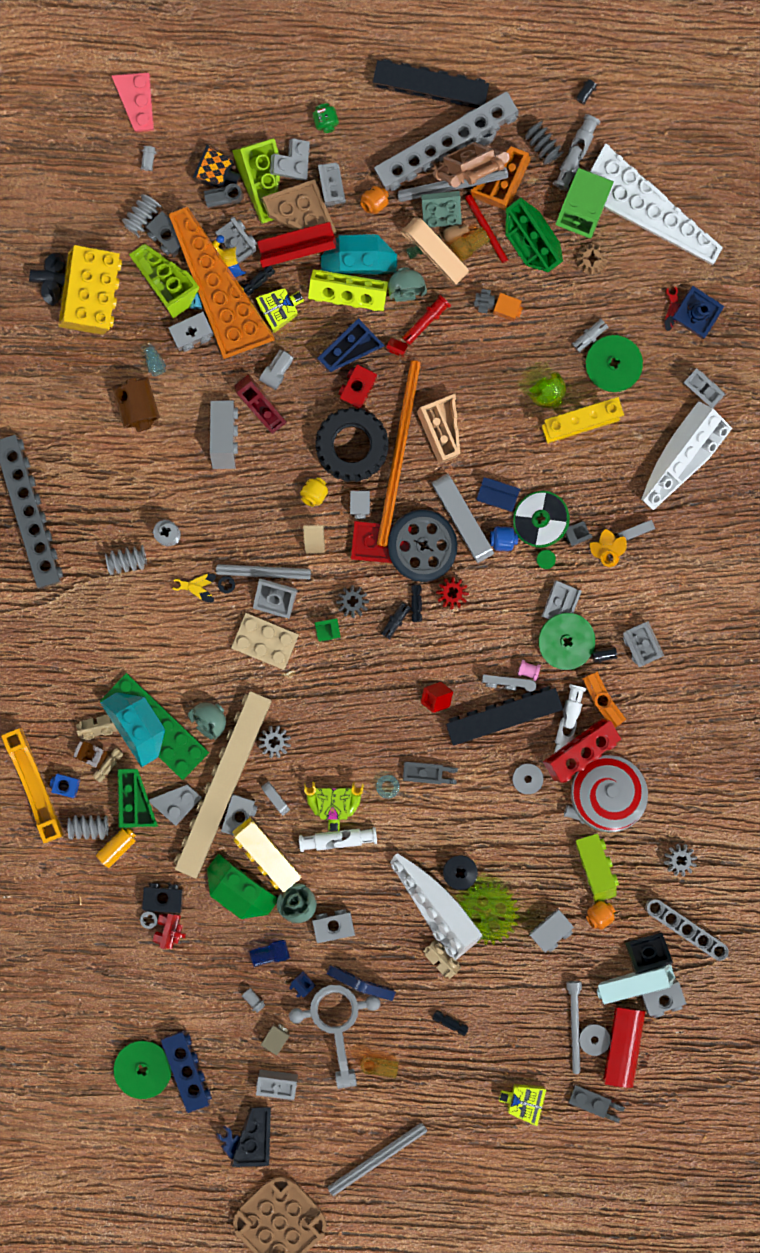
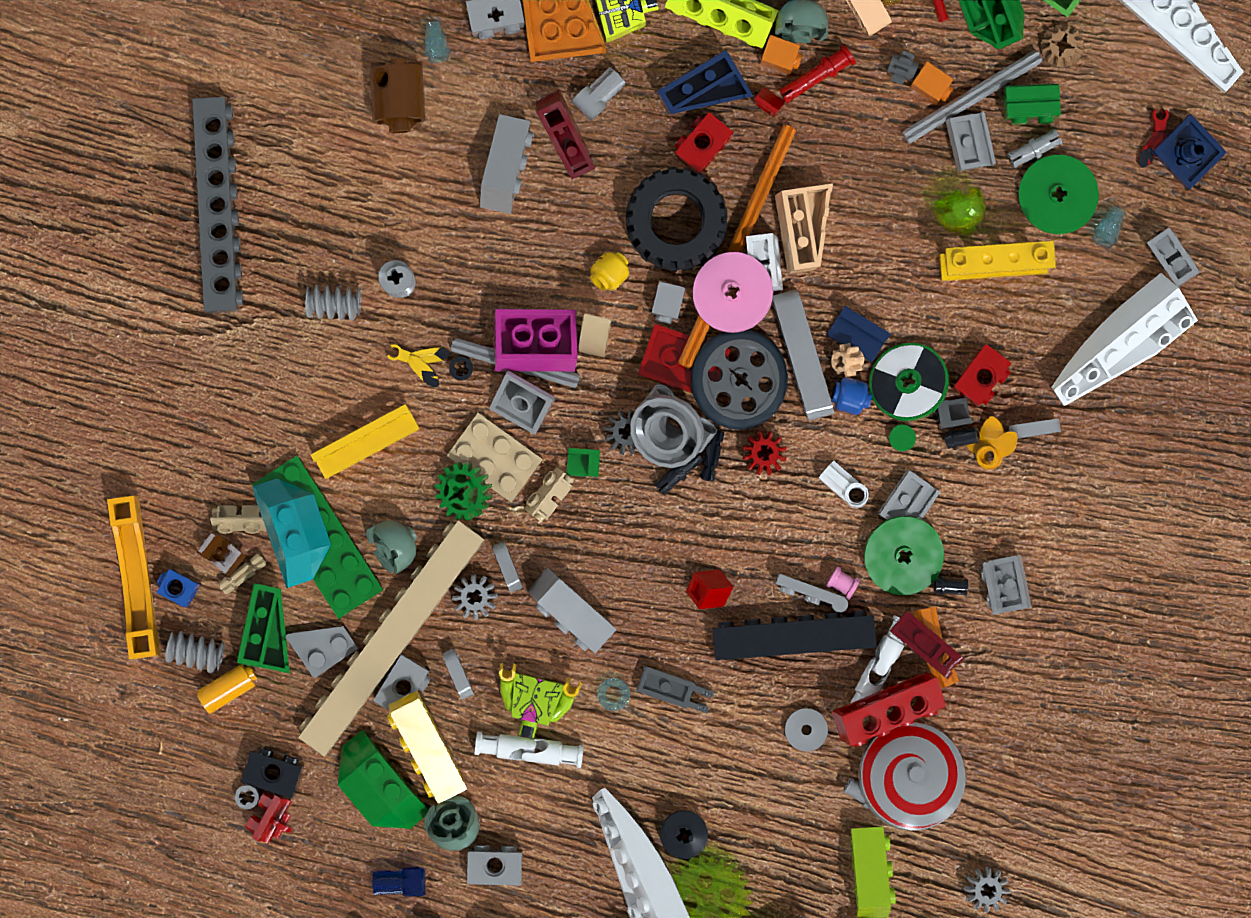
camera: 15 degrees right, 0 degrees up
(172, 651) = (365, 441): none -> yellow fence
(257, 671) = (453, 485): none -> green gear
(273, 552) = (535, 340): none -> dark pink brick
(292, 715) = (507, 567): none -> light grey beam
(304, 665) = (554, 484): none -> tan hinge
(344, 736) = (571, 611): none -> light grey wedge
(377, 601) = (659, 439): none -> light grey piece
(397, 312) = (781, 55): none -> orange brick
(418, 487) = (751, 302): none -> bright pink piece
(420, 460) = (766, 250): none -> white brick
(495, 514) = (847, 360): none -> light nougat gear
(511, 601) = (842, 483): none -> white piece
(537, 310) = (972, 96): none -> light grey axle
(544, 341) = (970, 141): none -> light grey plate
(580, 304) = (1031, 103): none -> green brick
(587, 549) = (962, 437): none -> black pin
(591, 491) = (987, 360): none -> red brick
(597, 699) = (926, 643): none -> dark red plate
(654, 380) = (1109, 228): none -> clear light blue cone

